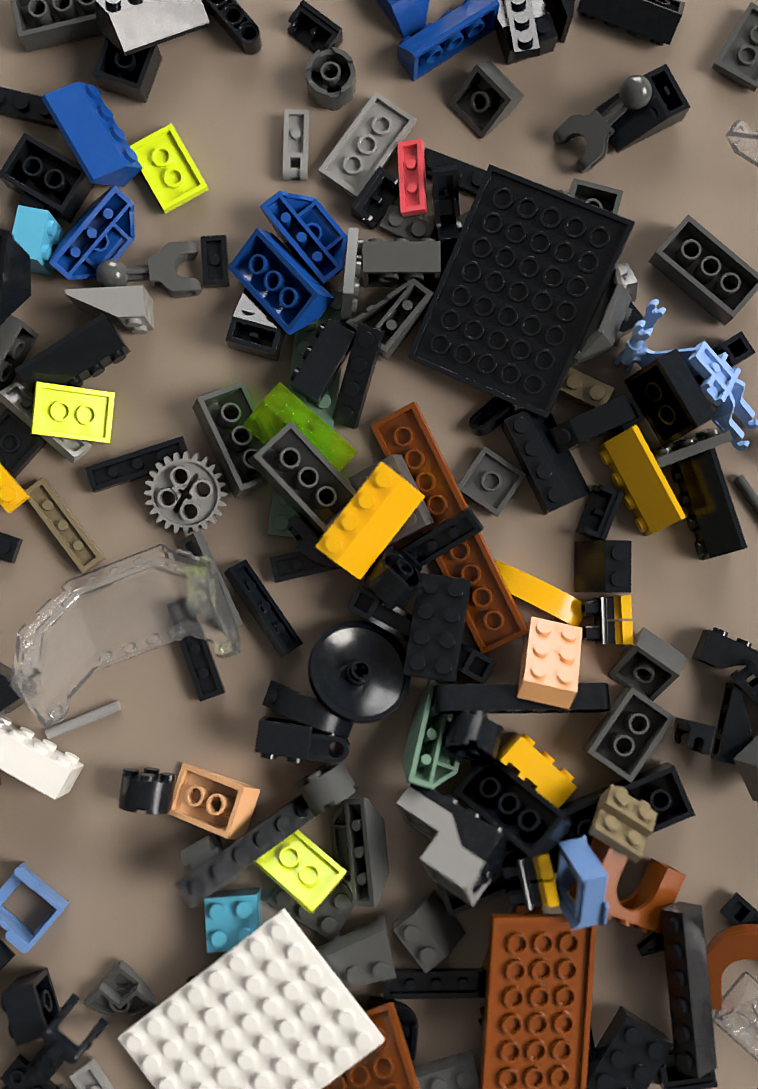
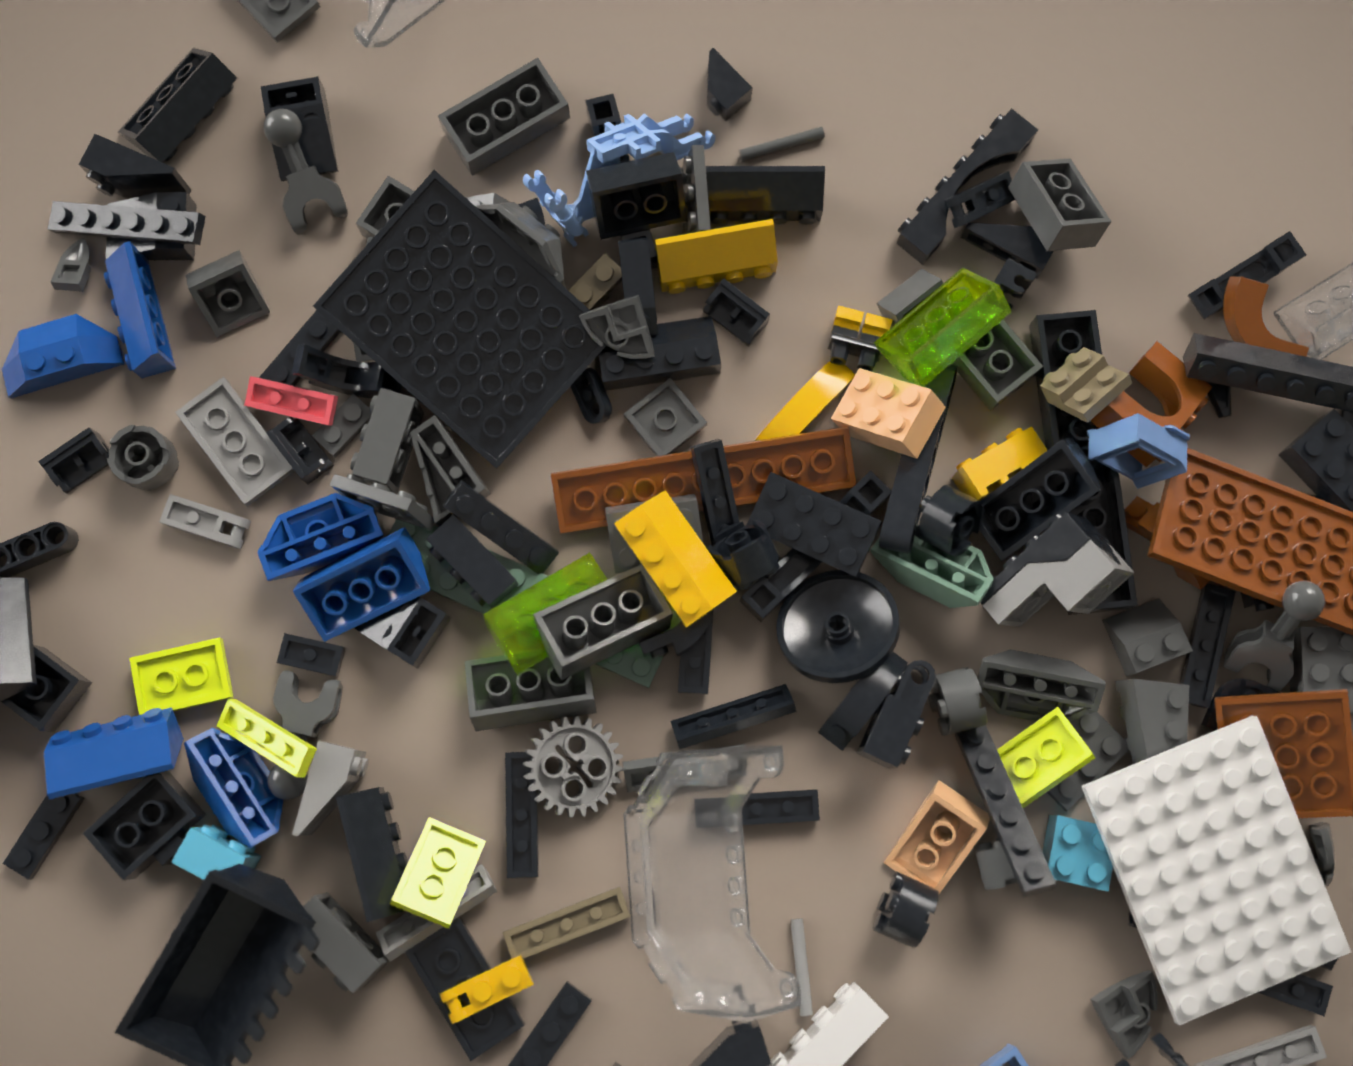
camera: 75 degrees left, 5 degrees down
(137, 247) = (266, 738): none -> neon yellow plate
(452, 1042) = (1274, 643): none -> dark grey piece
(536, 881) = (1125, 497): black hips -> none
(552, 419) = (620, 327): none -> dark grey brick
(602, 566) = (797, 326): black slope -> none
(638, 688) = (943, 326): none -> clear neon green slope

